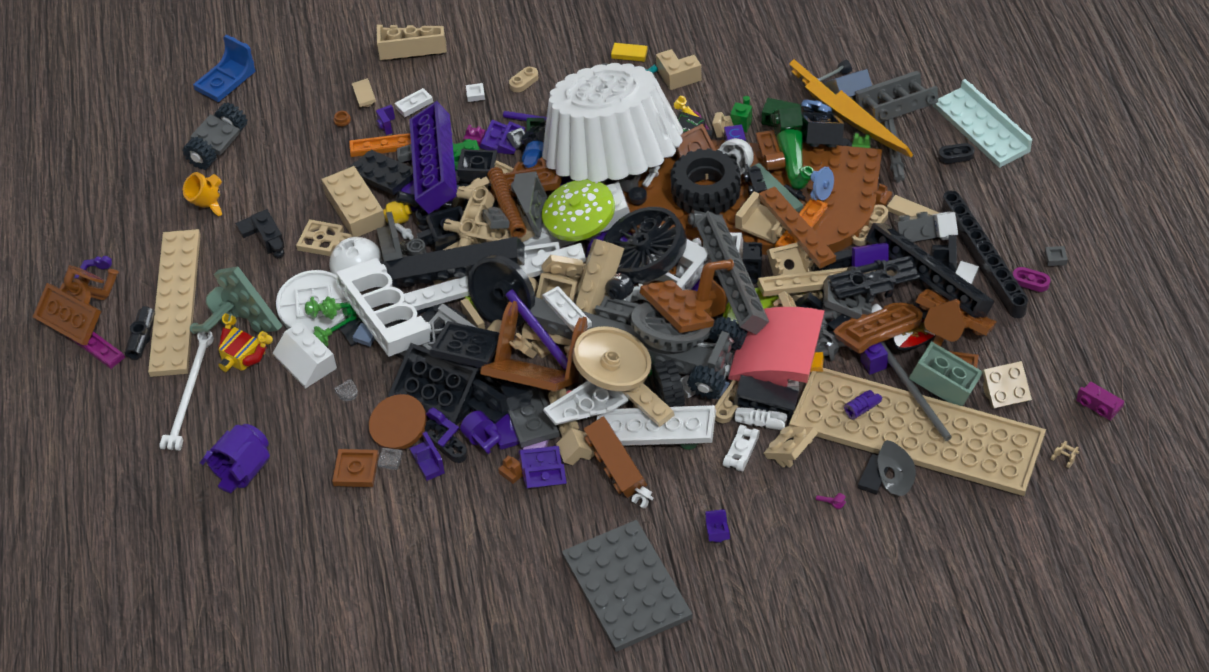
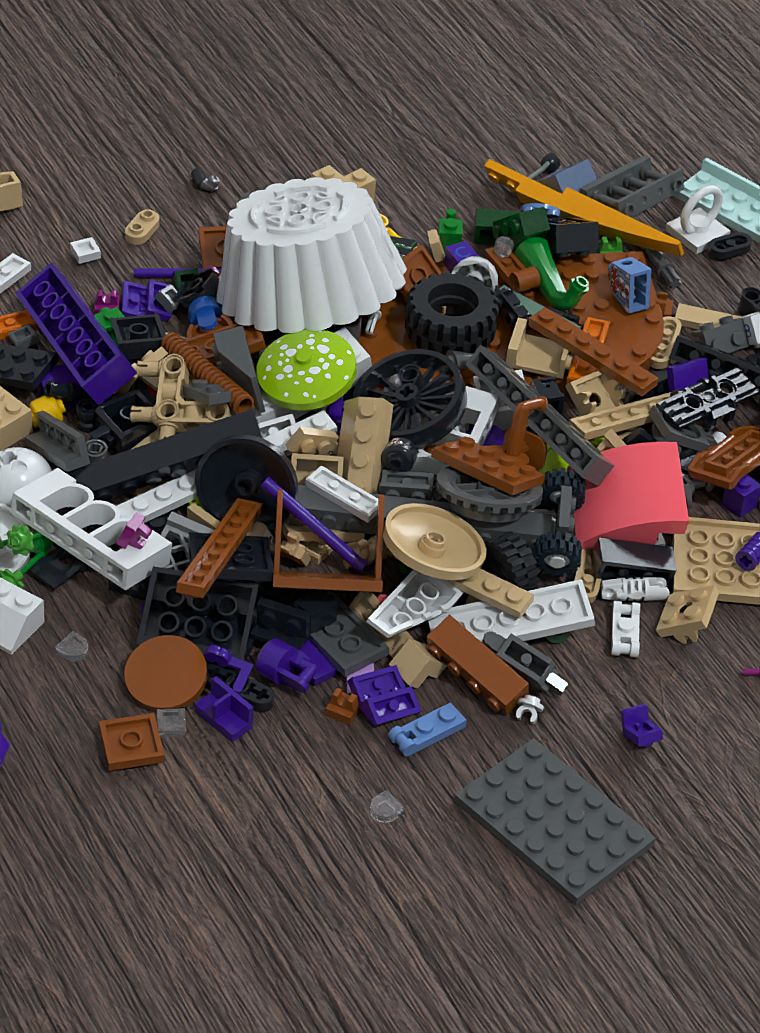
camera: 25 degrees left, 5 degrees down
(363, 335) = (71, 571): sand blue tile -> none
(402, 316) = (133, 531): none -> magenta tile
(454, 338) = (219, 548): none -> dark orange plate
(510, 551) = (385, 807): none -> clear tile
(564, 498) = (427, 729): none -> medium blue plate
(581, 50) = (210, 184): none -> arm
(629, 52) = (266, 176): yellow tile -> none
(637, 195) = (368, 342): black tile -> none
(649, 461) = (527, 662): none -> dark grey hinge
(767, 133) = (503, 246): none -> clear hinge
(822, 184) = (599, 291): medium blue piece -> none
(853, 169) = (630, 283): none -> medium blue torso
(938, 133) = (697, 227): none -> white tile

